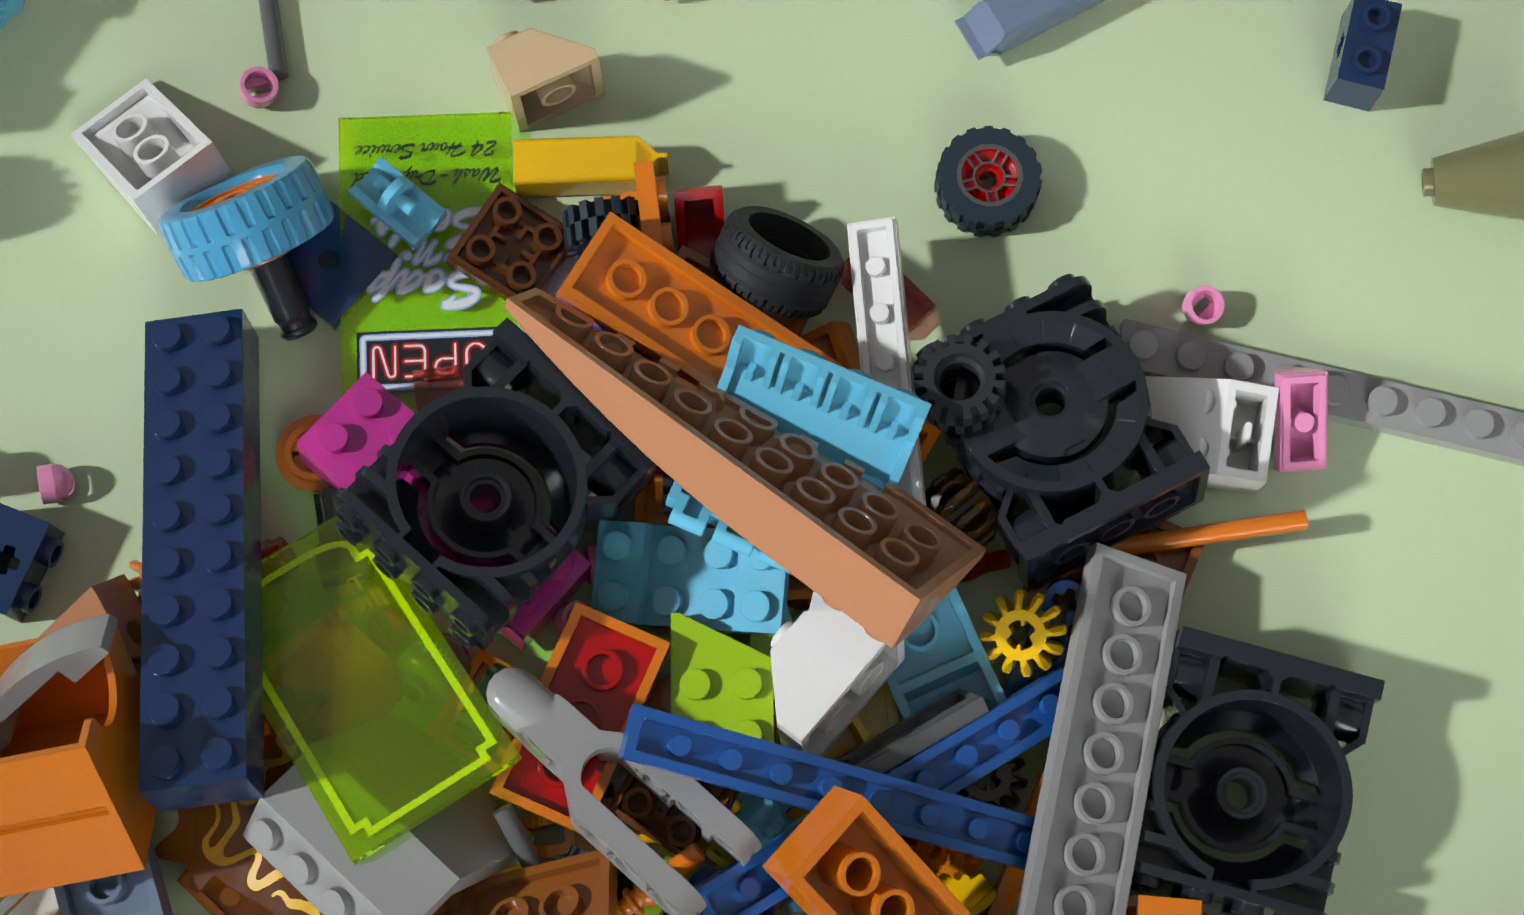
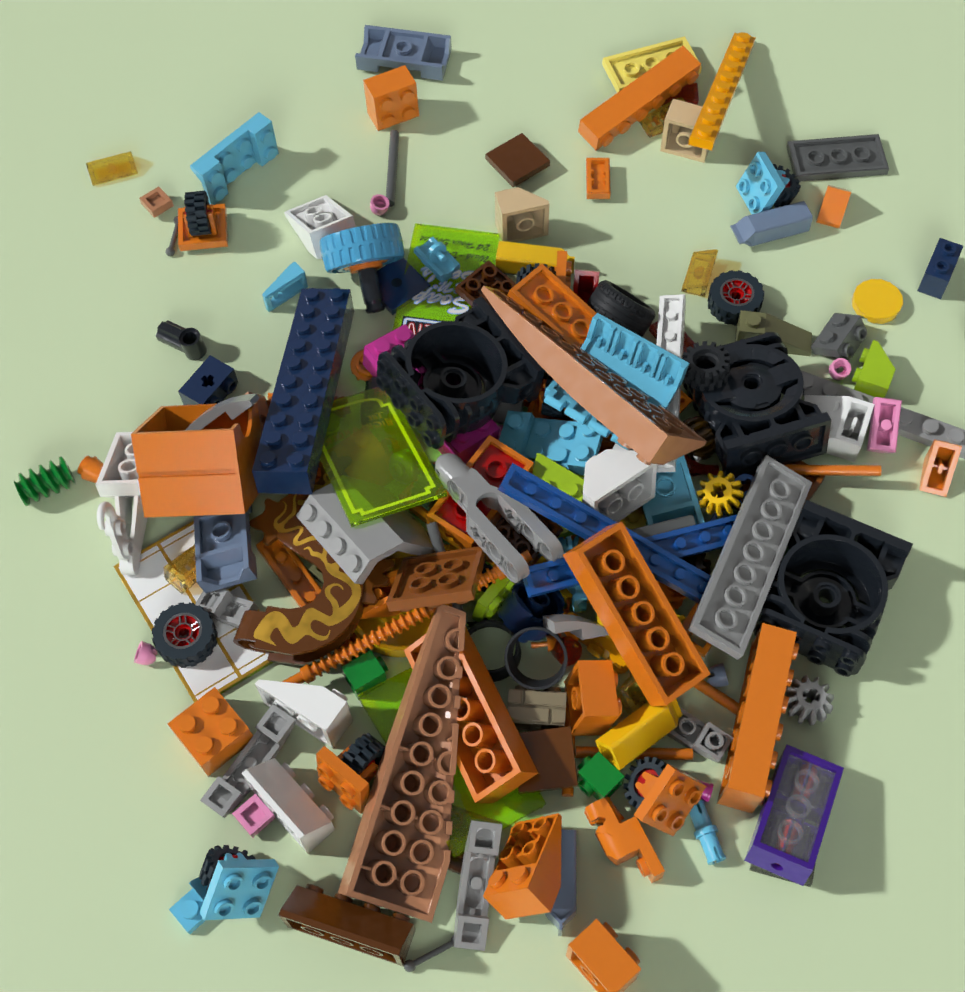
camera: 15 degrees right, 15 degrees down
(55, 483) = (240, 357): bright pink hinge -> none
(112, 309) = (285, 286): none -> medium azure slope
(911, 133) = (700, 272): none -> clear yellow slope
(1051, 248) = (756, 323): none -> olive slope
(1194, 234) = (840, 336): none -> dark grey bracket
(1253, 139) = (877, 301): none -> yellow tile
(1269, 303) = (875, 373): none -> lime slope
(1408, 487) = (939, 467): none -> orange slope

